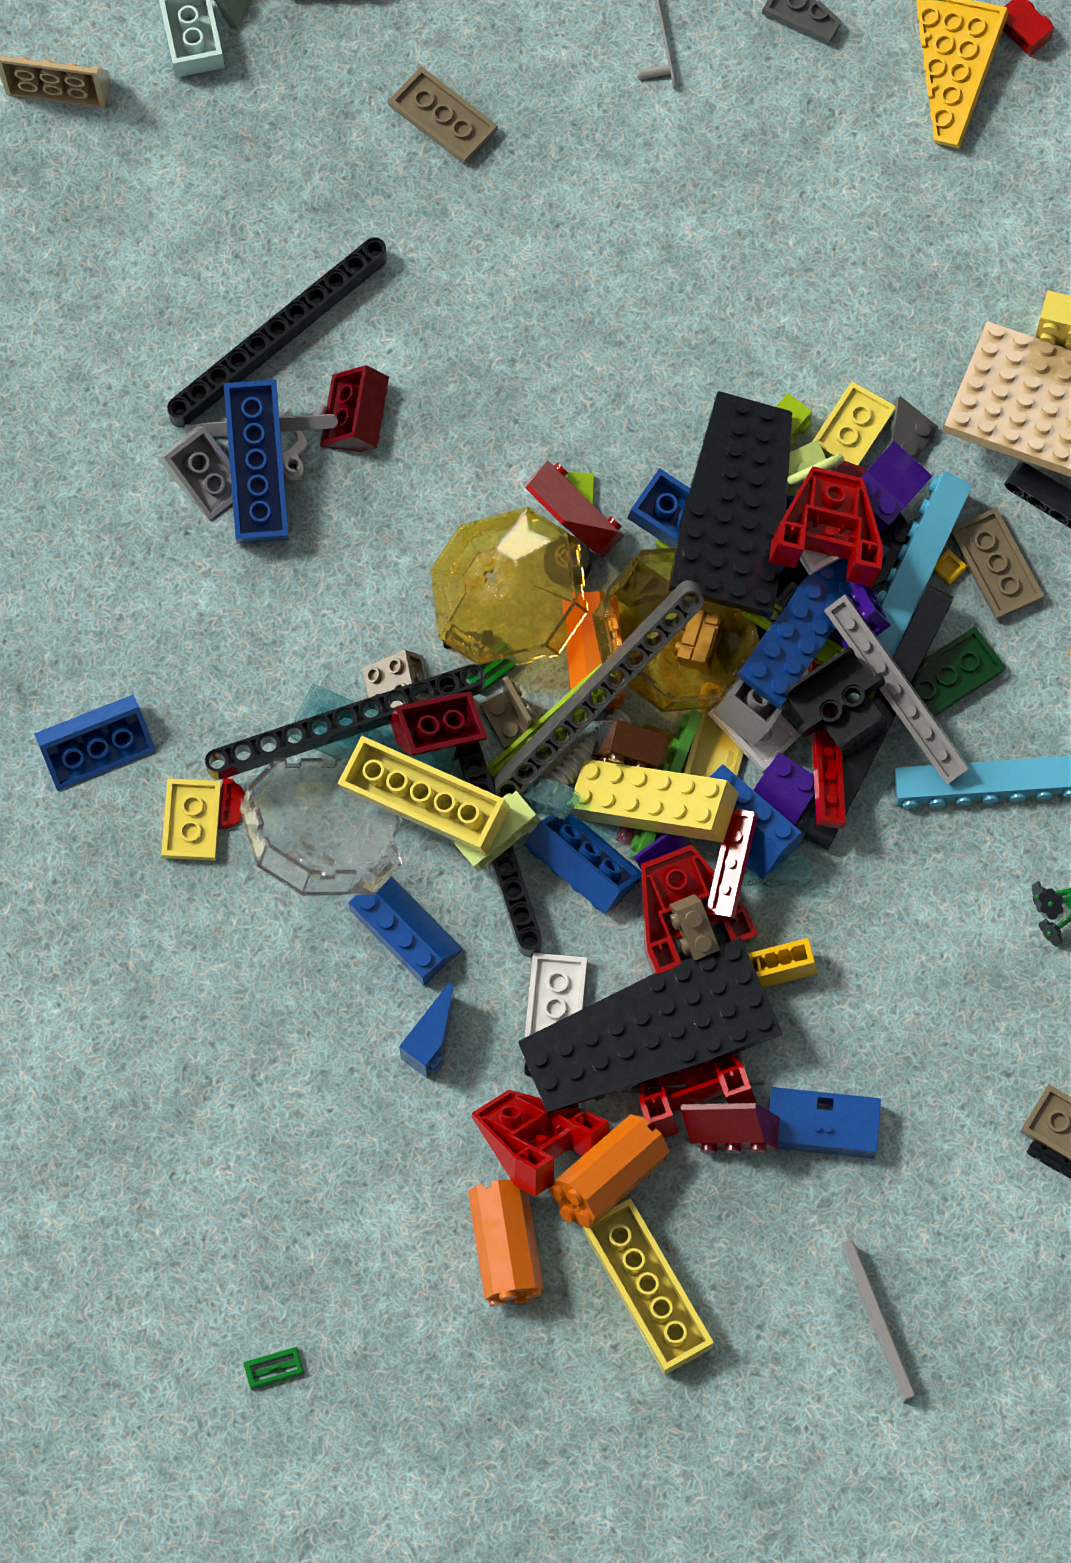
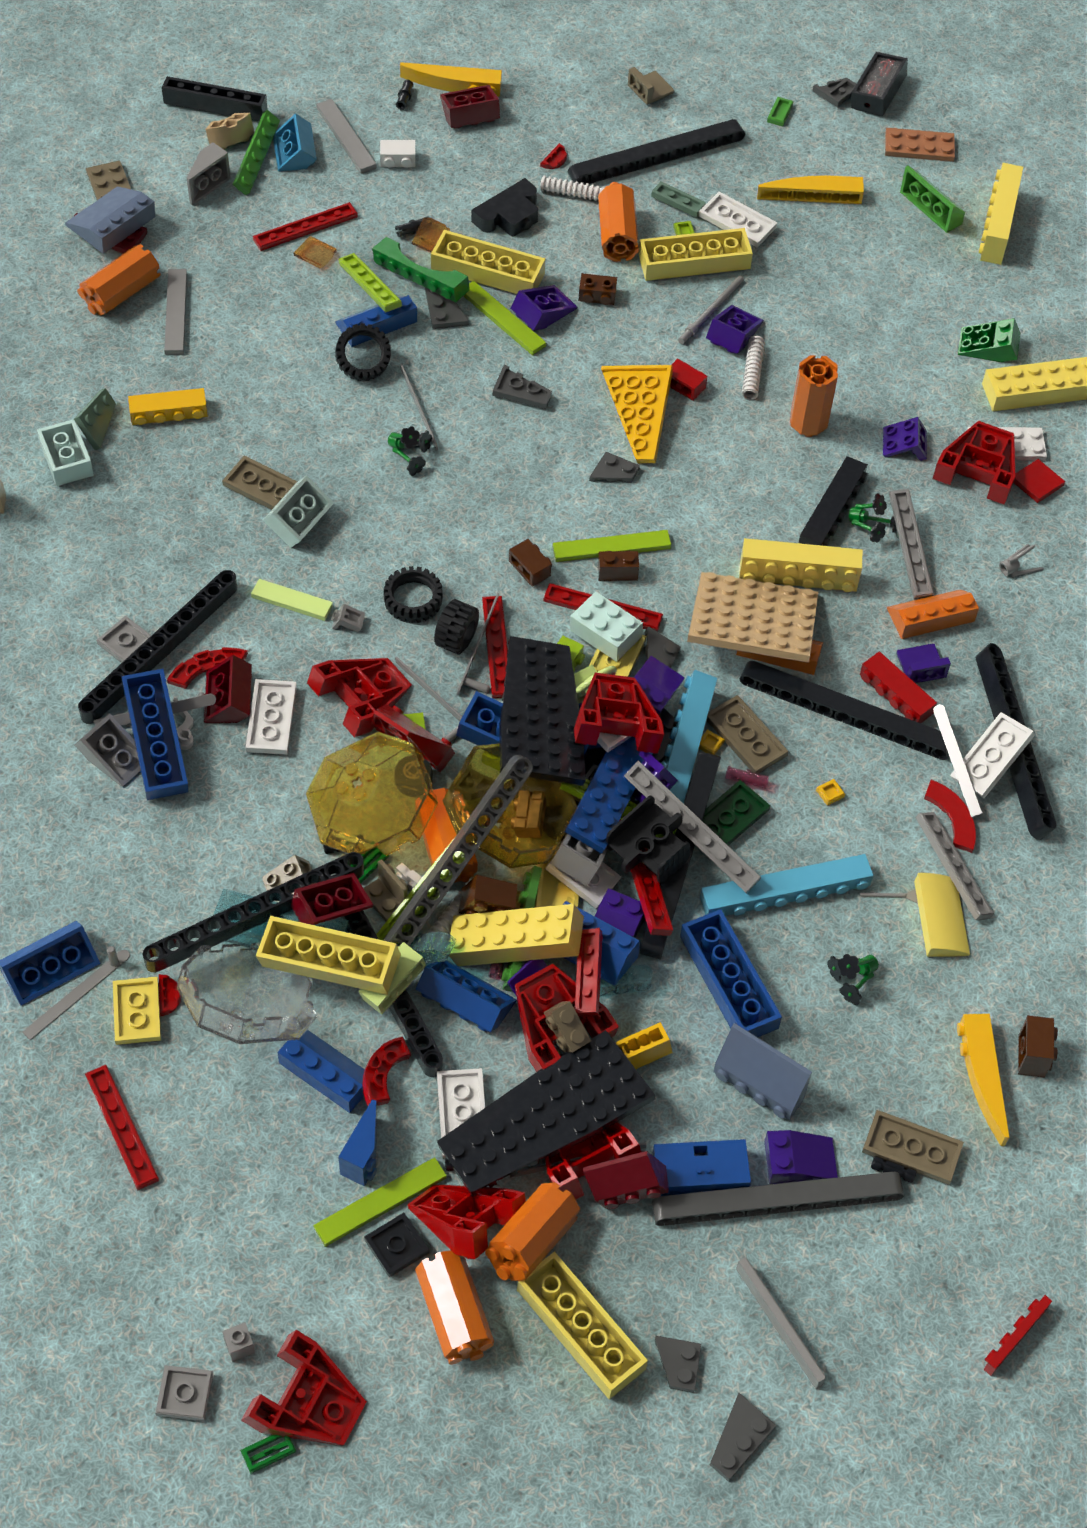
camera: 15 degrees left, 15 degrees down
(157, 961) = (122, 1127): none -> red tile
(172, 752) = (114, 962): none -> light grey piece
(189, 1288) = (184, 1393): none -> light grey plate
(235, 316) = (123, 639): none -> light grey plate
(257, 1241) = (238, 1342): none -> light grey brick
(330, 361) = (200, 663): none -> red tile
(333, 1323) = (317, 1401): none -> red wedge
(403, 451) = (271, 716): none -> white plate
(442, 1100) = (379, 1202): none -> lime tile
(452, 1155) = (396, 1244): none -> black plate
(453, 287) = (291, 599): none -> yellowish green tile
(463, 939) = (378, 1067): none -> red tile
(478, 164) = (298, 511): none -> light aqua brick
(520, 326) = (348, 617): none -> light grey bracket
(528, 426) = (362, 686): none -> red wedge
(542, 697) = (410, 877): none -> white plate
(608, 331) = (409, 576): none -> black tyre
(625, 509) = (452, 735): none -> light grey piece
(637, 76) = (408, 438): none -> black plant
(654, 362) = (456, 626): none -> black tyre
(659, 438) = (467, 681): none -> light grey piece
(702, 384) = (496, 644): none -> red tile
(752, 1346) = (679, 1361): none -> dark grey wing
(766, 278) = (530, 562): none -> reddish brown brick
(805, 1443) = (741, 1437): none -> dark grey wing
(845, 388) = (606, 626): none -> light aqua brick
(849, 354) = (574, 599): none -> red tile
(877, 265) = (629, 542): none -> lime tile
(879, 298) = (618, 566): none -> reddish brown brick
(903, 150) = (614, 469): none -> dark grey wing
(907, 888) = (730, 974): none -> blue brick
(907, 1173) = (777, 1198): none -> dark grey beam
(917, 1020) = (762, 1072): none -> sand blue slope
(944, 1128) = (799, 1156): none -> dark purple slope
(985, 623) = (747, 777): none -> clear pink pin

